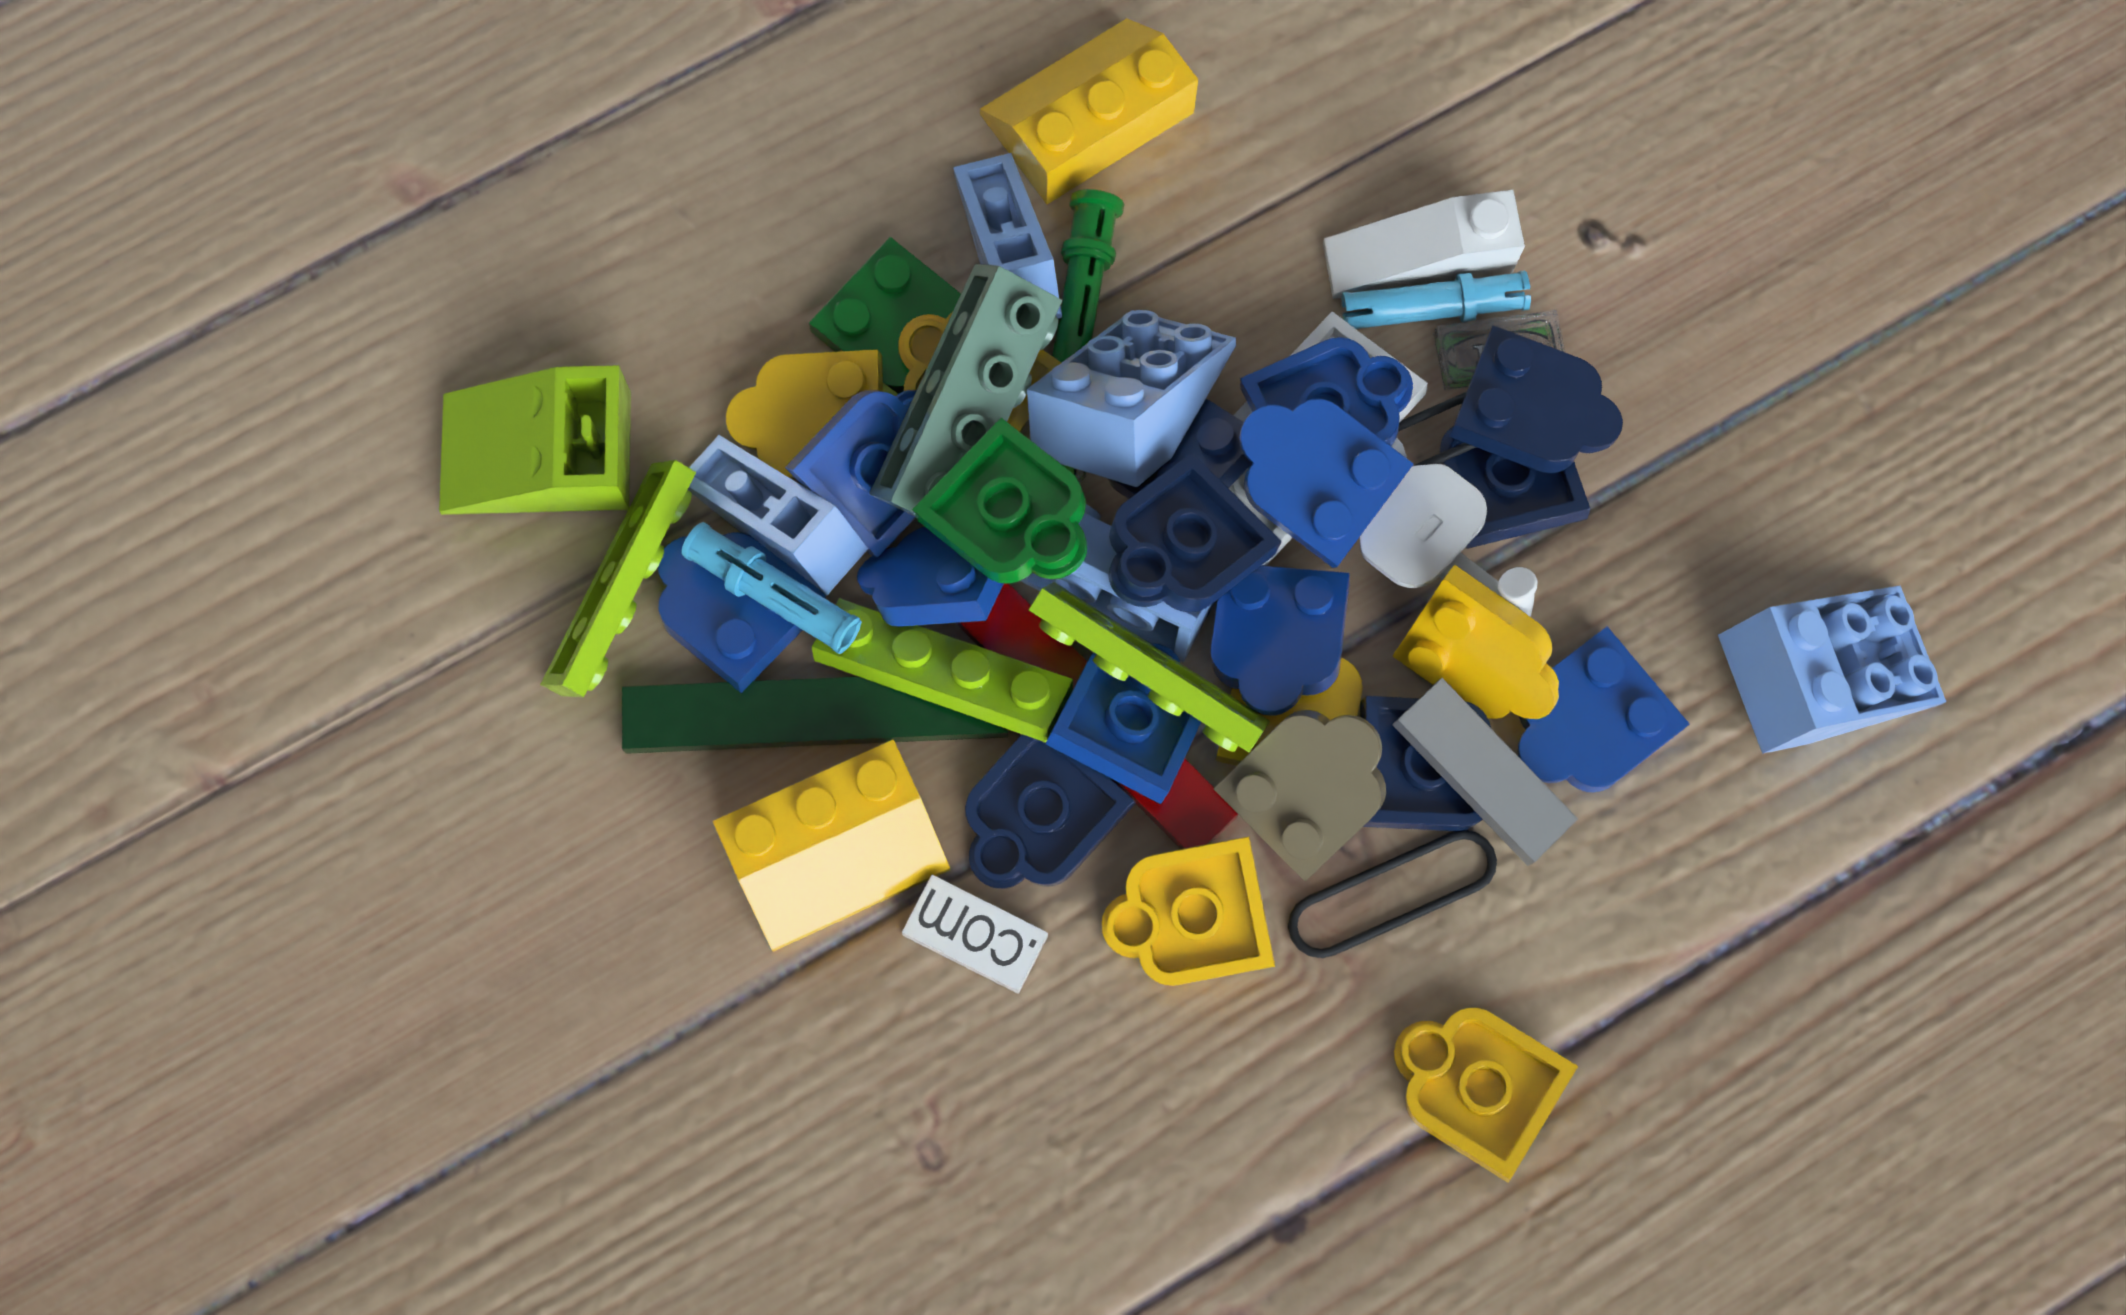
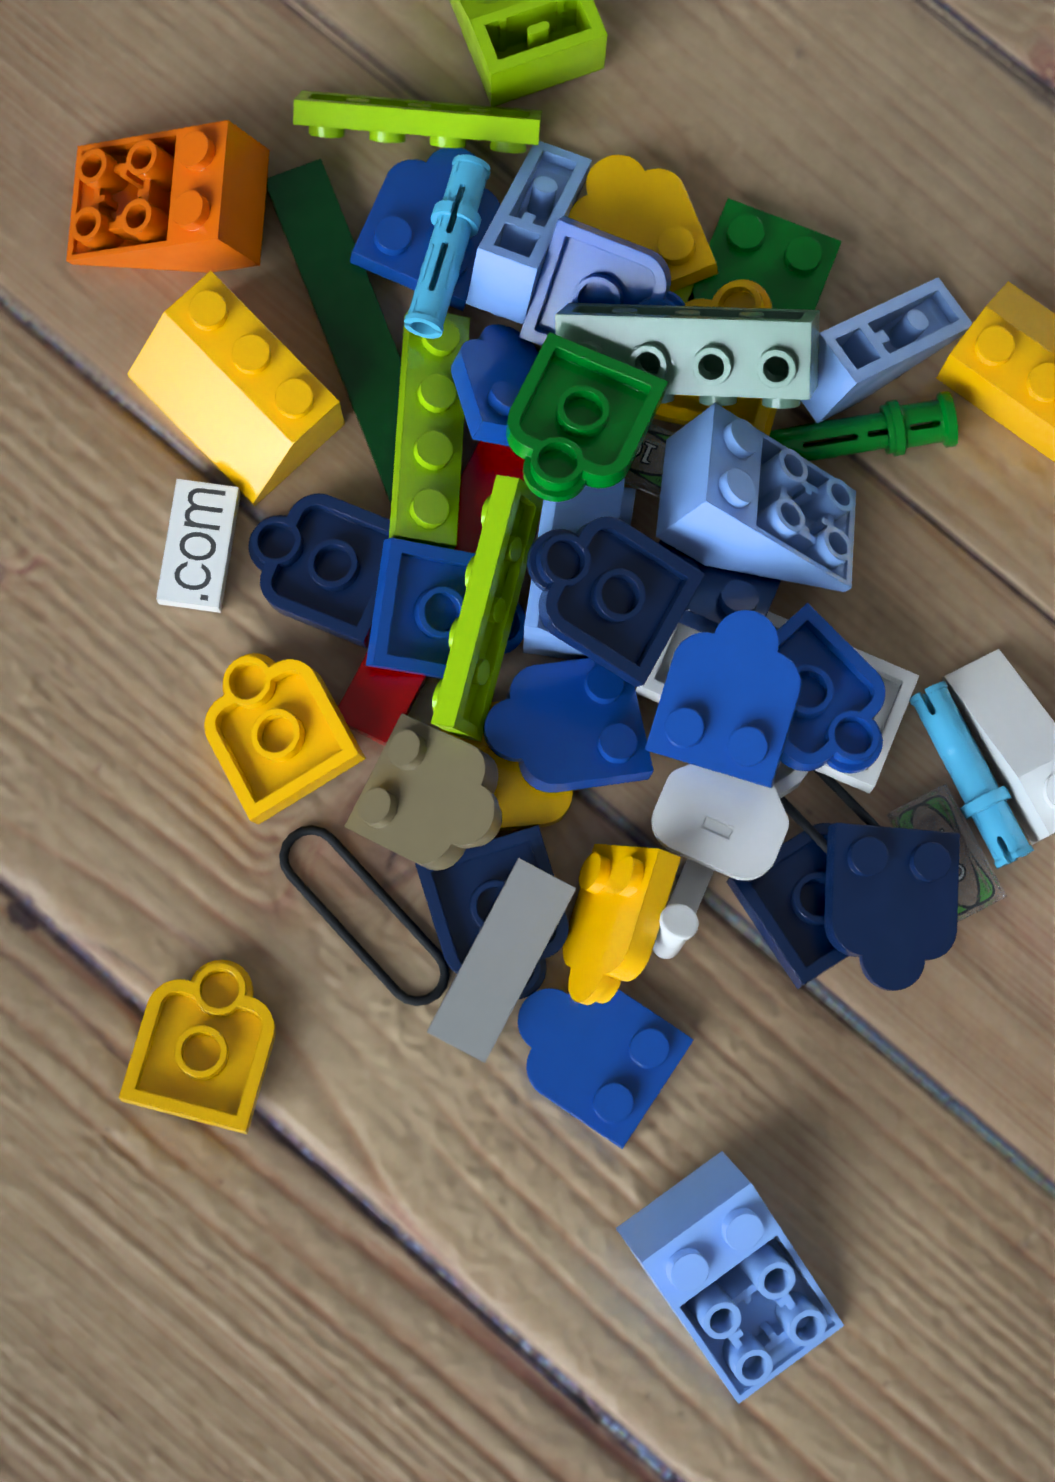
camera: 70 degrees right, 5 degrees up
(609, 850) = (170, 200): none -> orange slope

